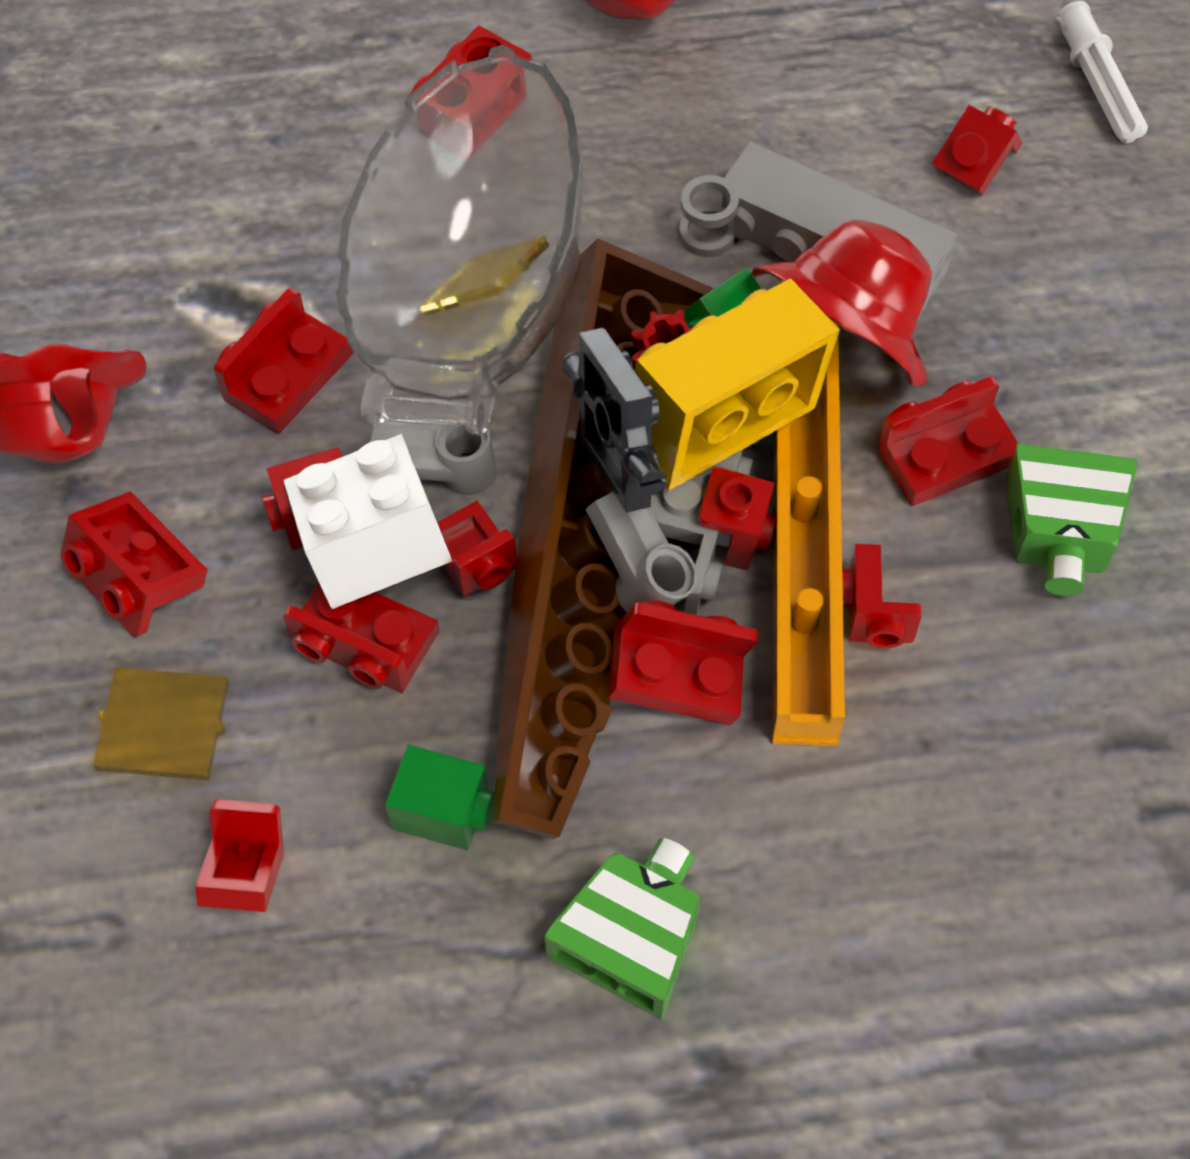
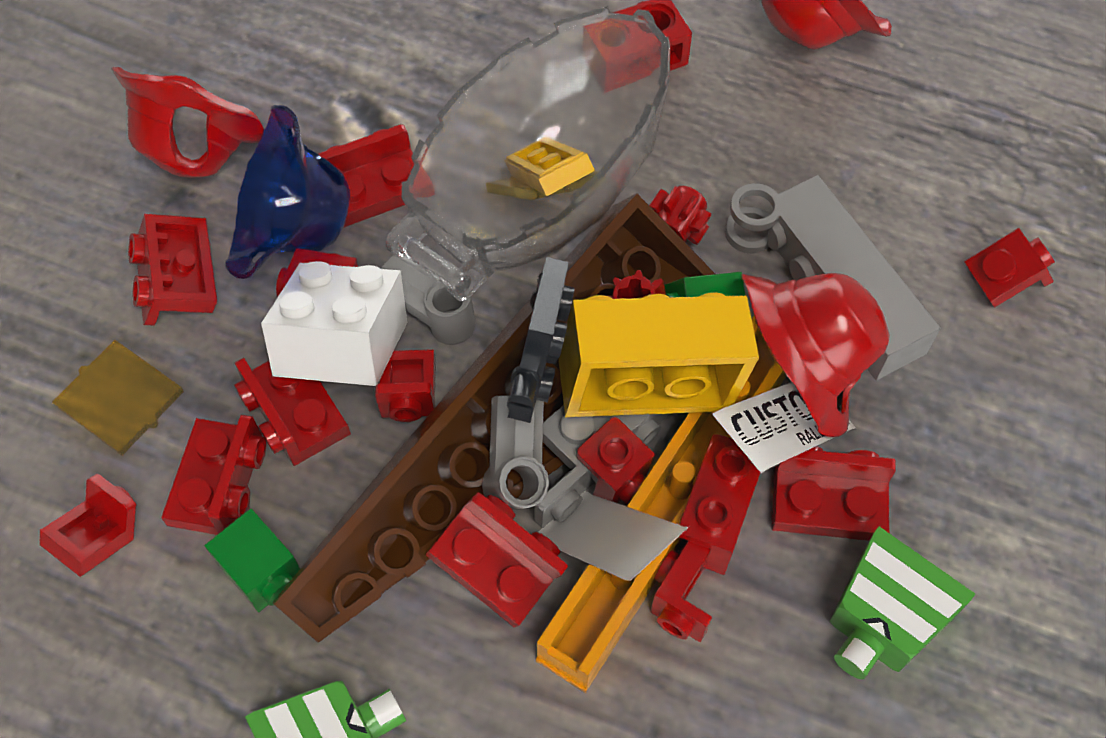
camera: 30 degrees right, 0 degrees up
(212, 423) = (285, 198): none -> clear blue piece
(329, 743) = (215, 475): none -> red bracket
(491, 252) = (548, 165): none -> yellow tile
(639, 235) = (683, 211): none -> red gear
(789, 576) = (612, 536): none -> white sticker
(861, 492) = (720, 501): none -> red bracket
(871, 393) = (772, 426): none -> white sticker

